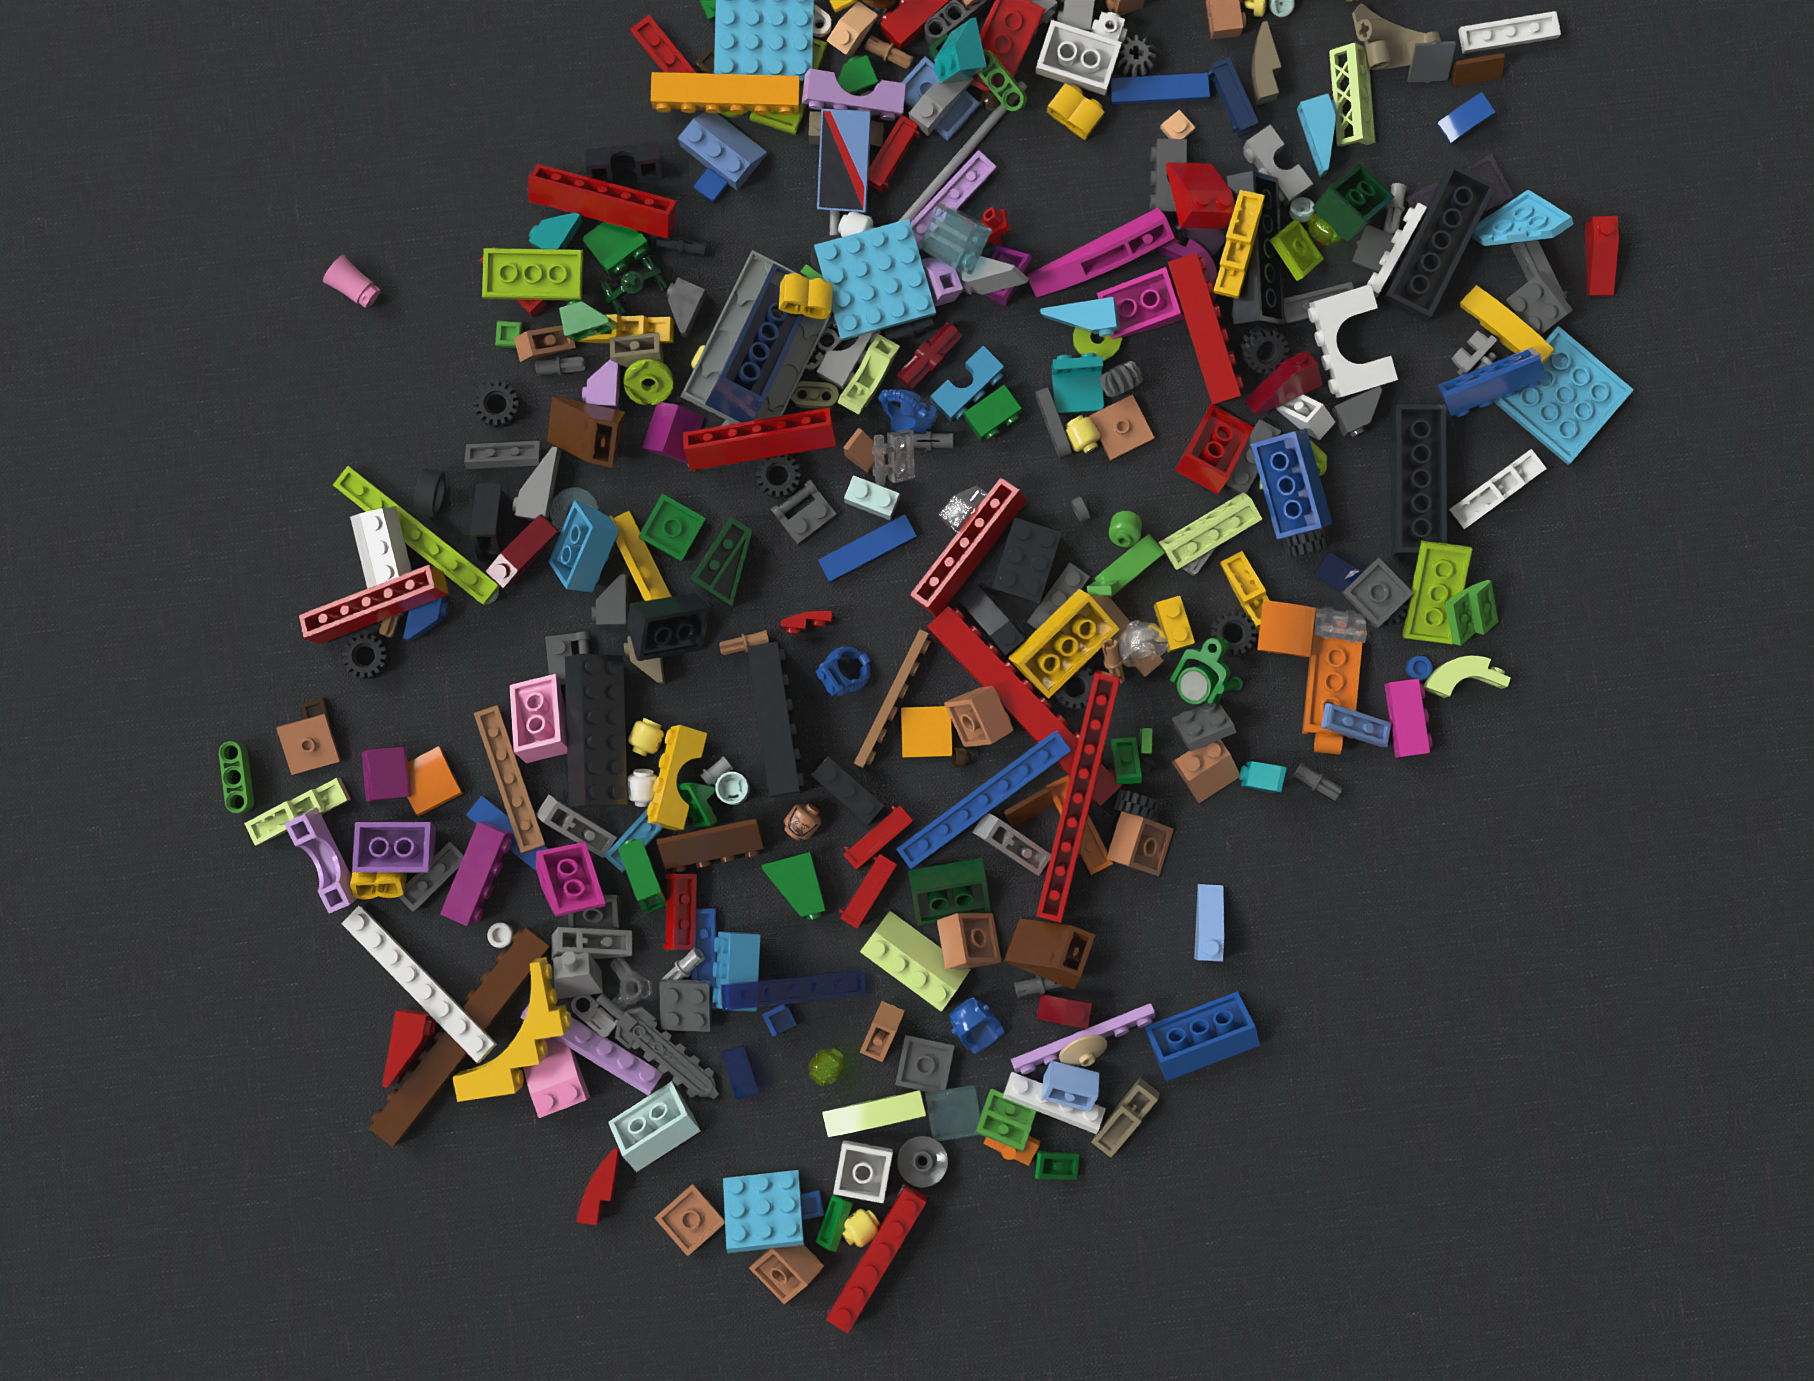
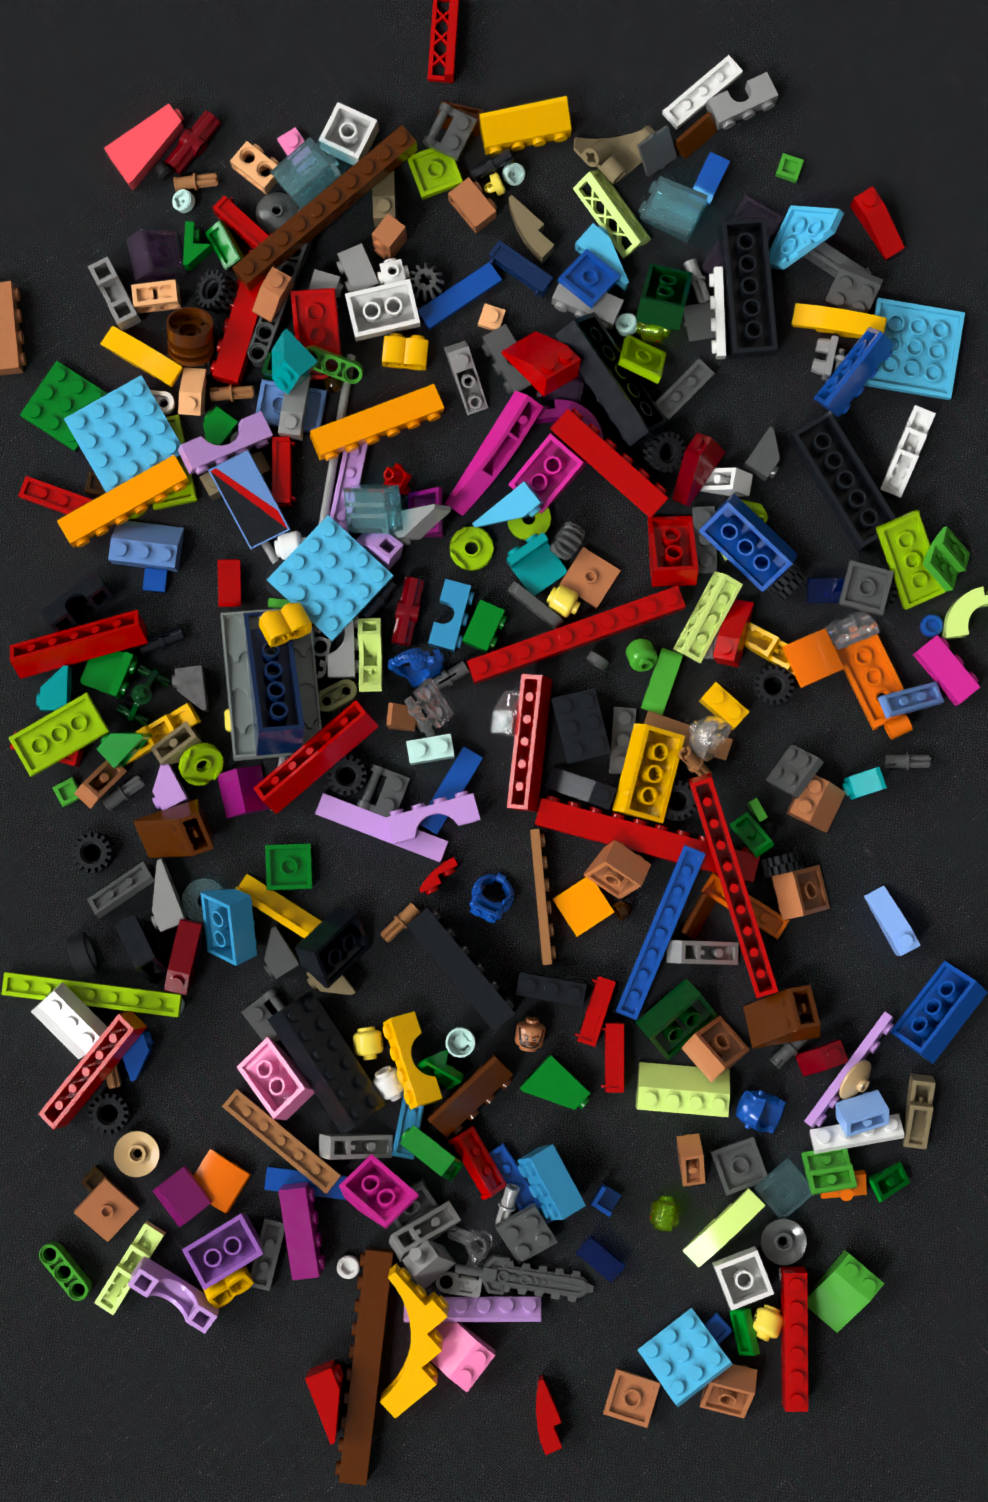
camera: 30 degrees left, 0 degrees up
(355, 709) = (126, 1159): none -> tan dish
(419, 984) = (309, 1345): white plate -> none
(653, 1126) = (559, 1343): light aqua slope -> none
(714, 772) = (439, 1036): light grey pin -> none
(723, 562) = (345, 869): dark green wedge -> none
(778, 228) = (229, 583): none -> red slope
(781, 544) = (377, 826): none -> lavender tile
(793, 990) = (603, 1171): clear blue tile -> none
(804, 554) = (405, 824): none -> lavender arch
(949, 1242) = (843, 1291): none -> bright green slope
(1008, 160) = (377, 422): none -> light orange brick
(1025, 347) = (471, 561): none -> lime tile
(1075, 473) = (576, 635): none -> red brick
(1102, 588) = (653, 711): bright green tile -> none
(1119, 169) = (466, 377): none -> light grey slope
(1200, 681) = (771, 738): green piece -> none
(1224, 561) = (733, 634): none -> red slope
(1239, 244) = (597, 382): yellow slope -> none
(1292, 143) = (589, 278): none -> blue plate
(1328, 317) = (698, 396): white arch -> none
(1414, 125) = (673, 208): none -> clear light blue slope
(1522, 65) = (727, 111): none -> light grey arch
(1548, 153) = (789, 168): none -> bright green tile

